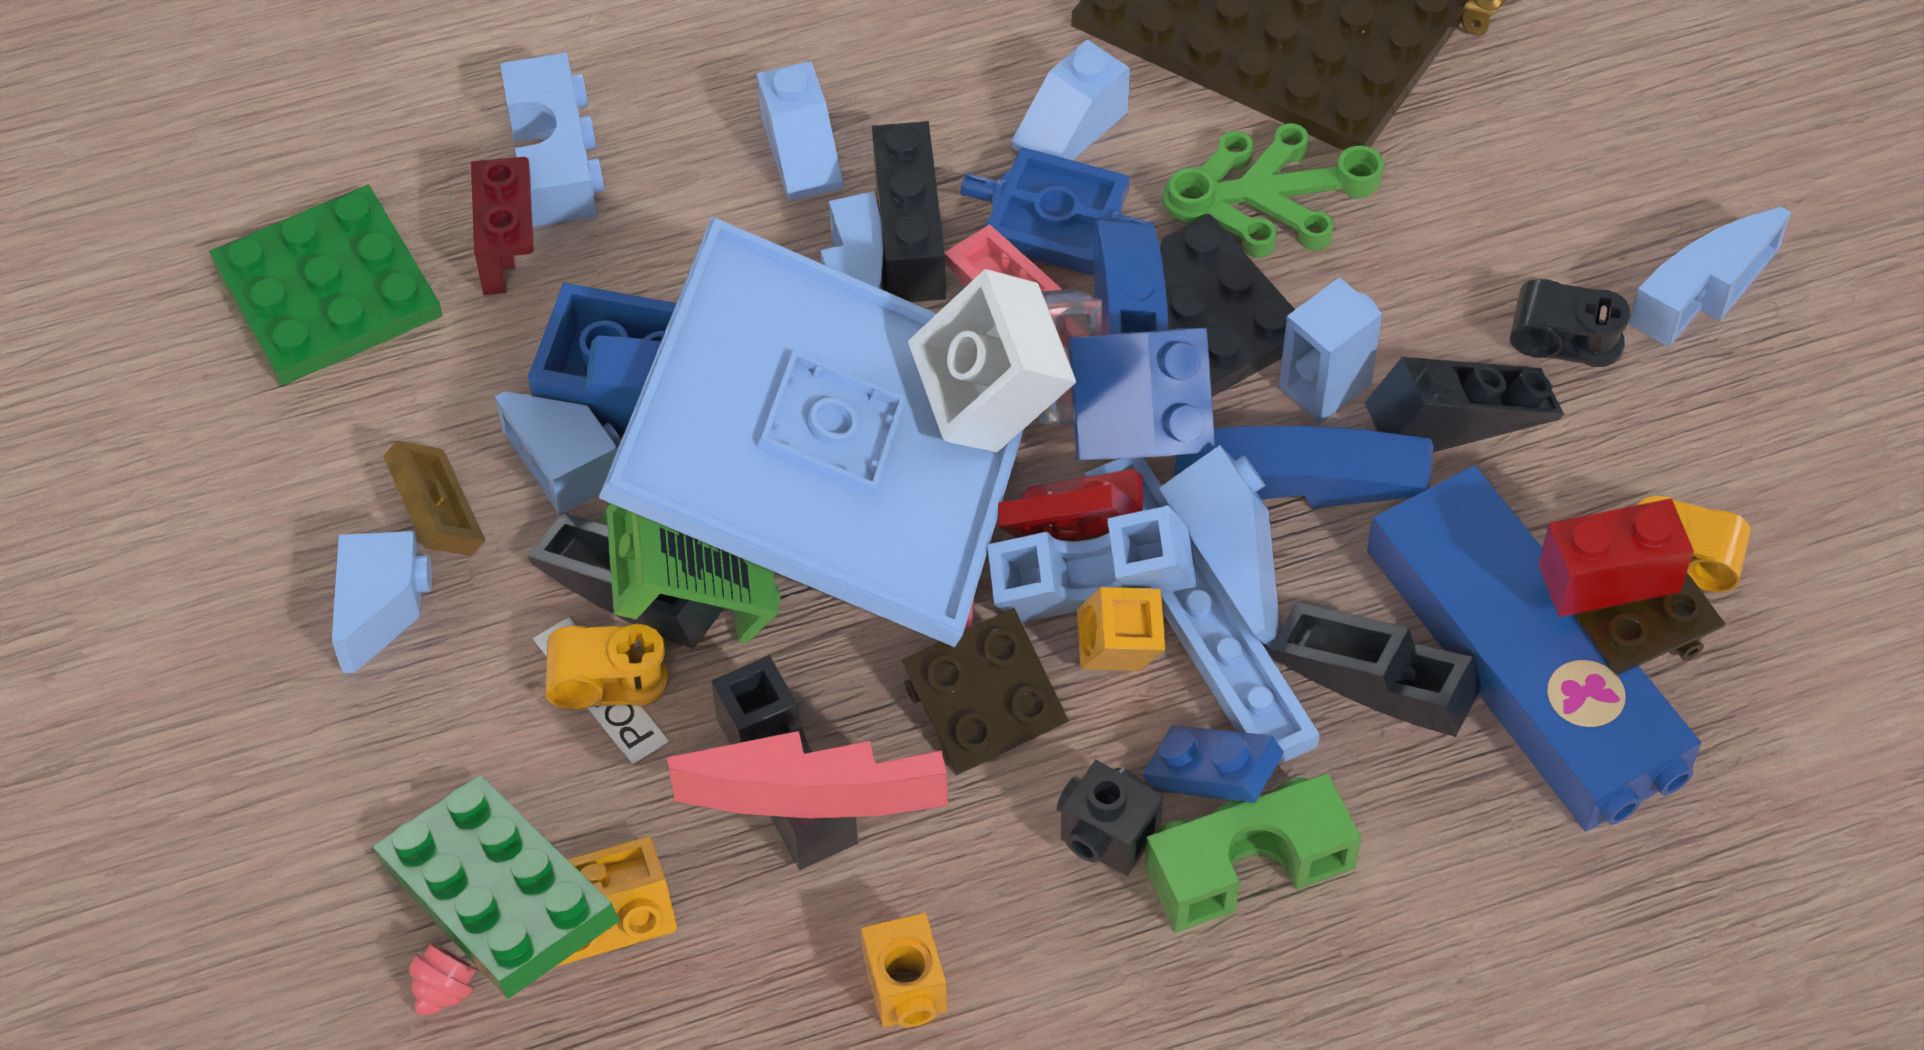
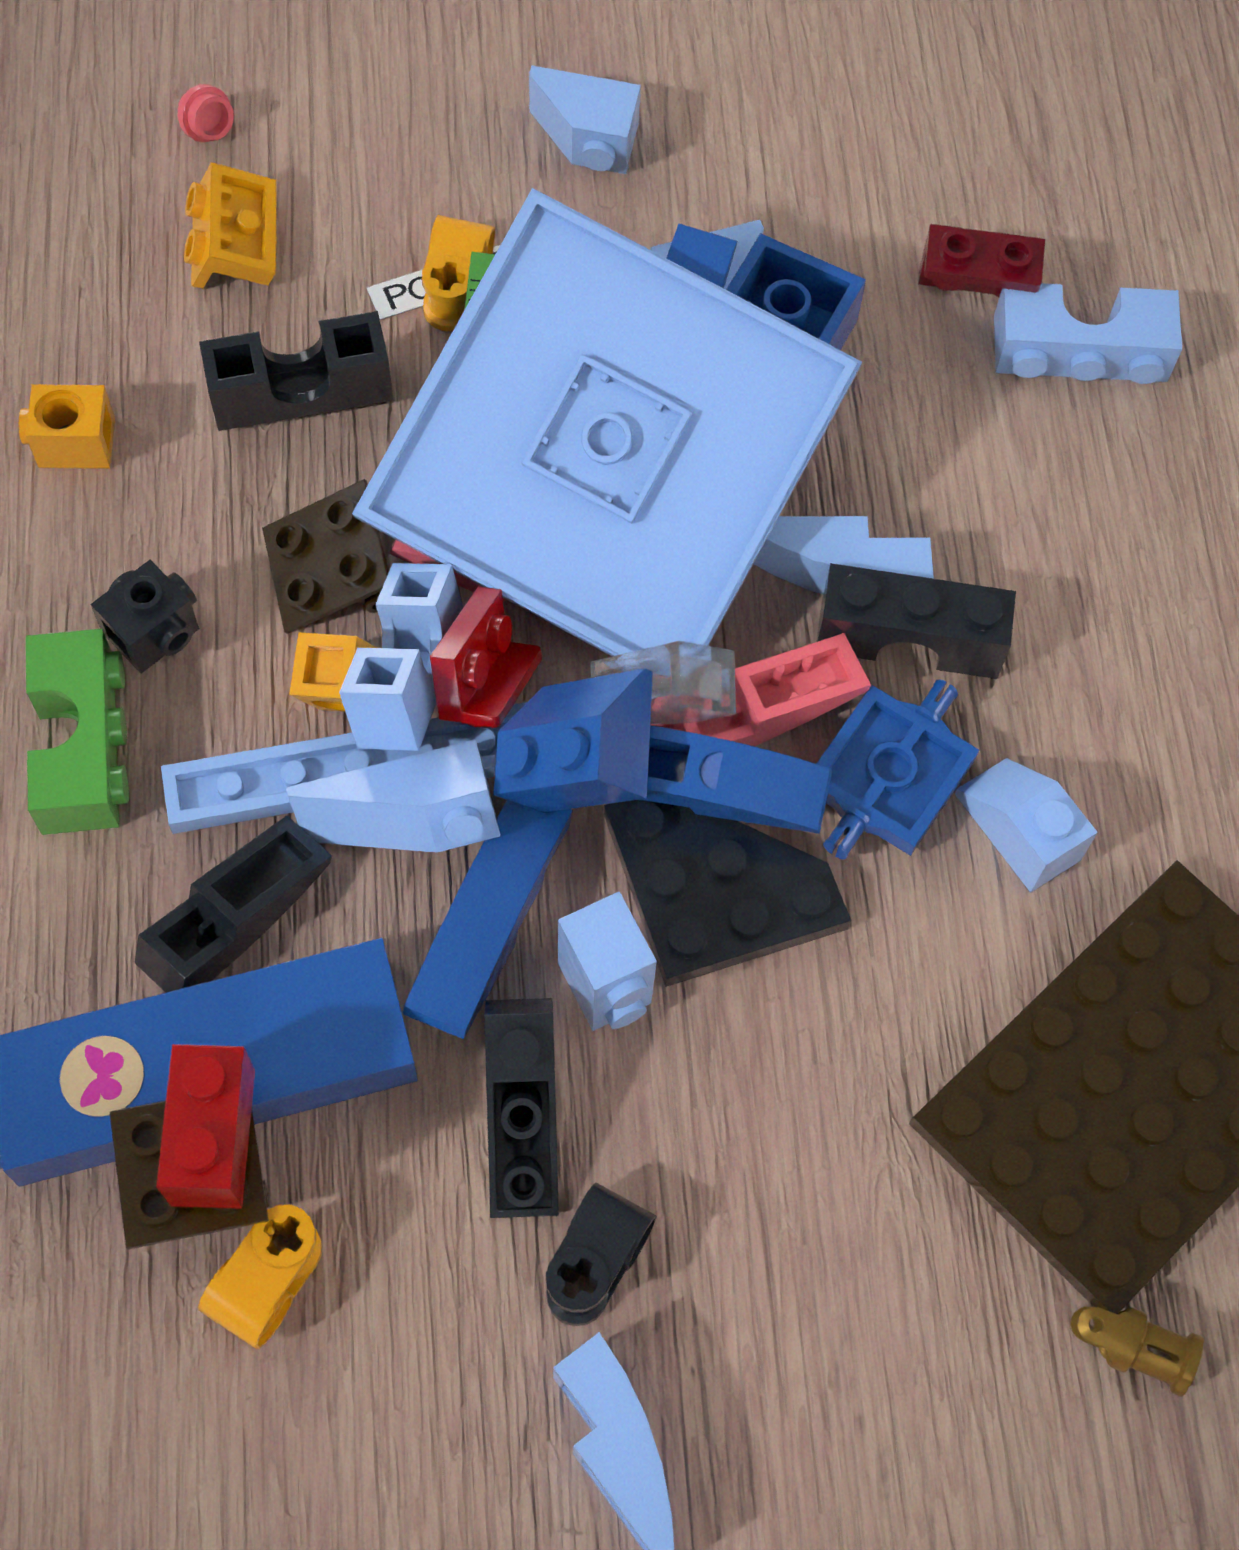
camera: 100 degrees right, 10 degrees up
(325, 284) = (957, 143): green plate -> none
(434, 498) = (677, 175): pearl gold plate -> none
(495, 885) = (254, 143): plate -> none
(780, 780) = (229, 331): coral slope -> none
(799, 130) = (1051, 548): light blue slope -> none
(991, 361) = (630, 586): white brick -> none
(1213, 763) = (167, 717): blue plate -> none
(1357, 174) = (880, 992): bright green plant -> none

